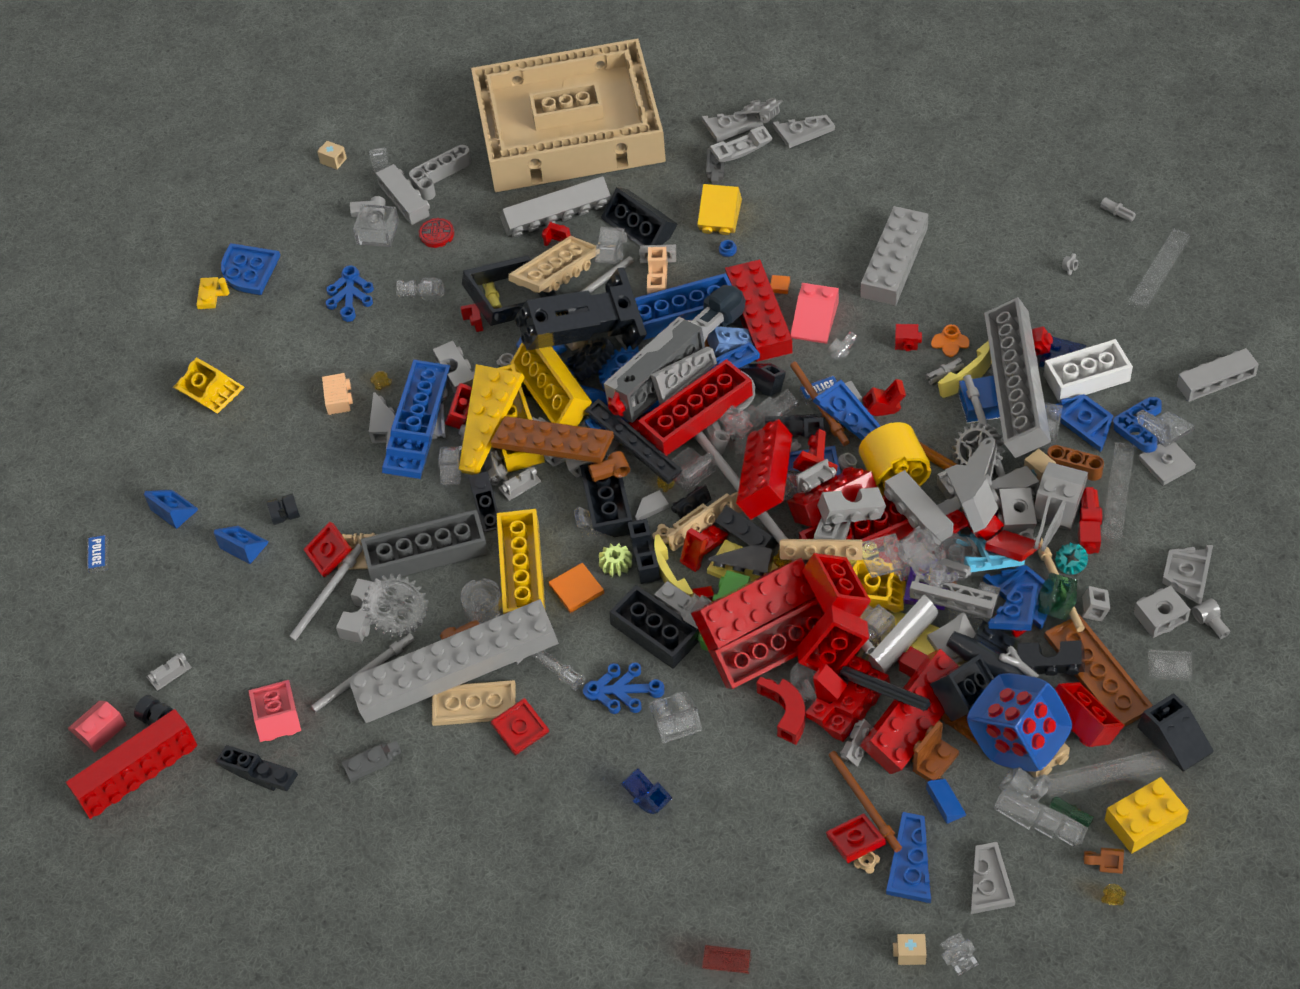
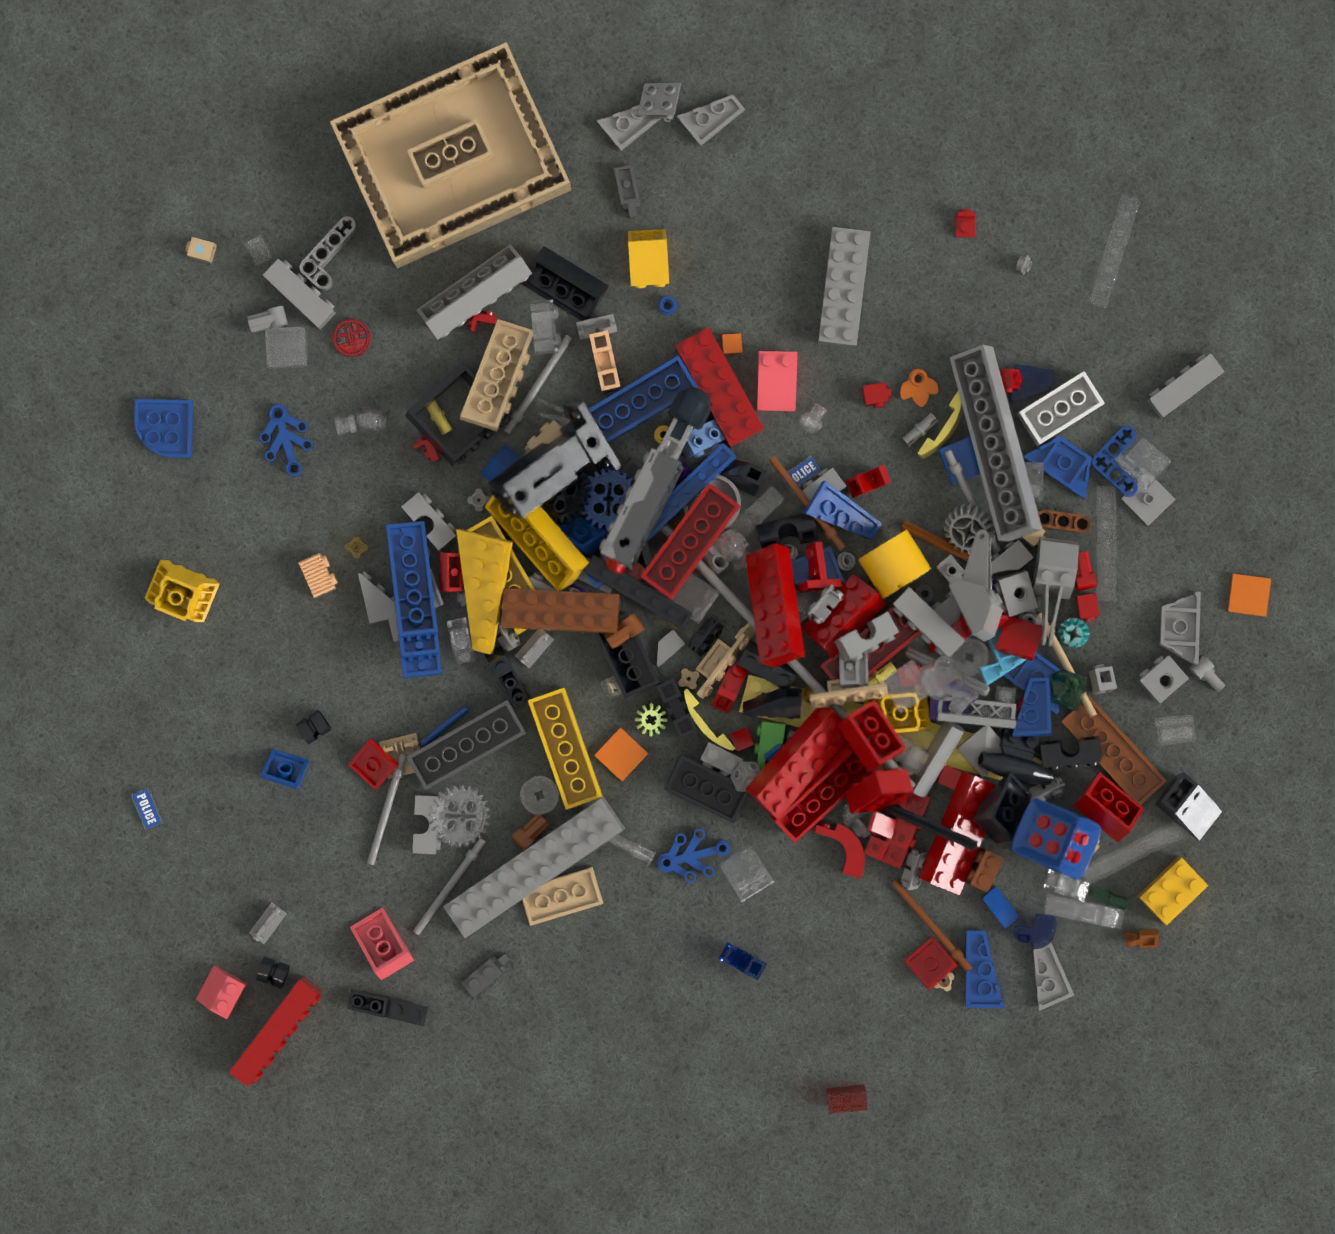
camera: 15 degrees left, 35 degrees up
(170, 506) = (200, 742): blue slope -> none
(210, 290) = (135, 465): yellow plate -> none
(519, 726) = (610, 914): red tile -> none
(682, 373) = (669, 511): light grey wing -> none
(741, 146) = (649, 157): light grey slope -> none
(910, 949) = (995, 1056): tan brick -> none
(959, 953) = (1042, 1054): clear brick -> none
(985, 828) = (1041, 934): none -> clear blue brick
(1013, 659) = (1042, 766): light grey piece -> none
(1019, 228) = (965, 224): none -> red bracket
(1113, 895) = (1153, 970): clear yellow plate -> none
(1117, 209) = (1062, 177): light grey axle -> none
(1265, 558) = (1249, 595): none -> orange tile

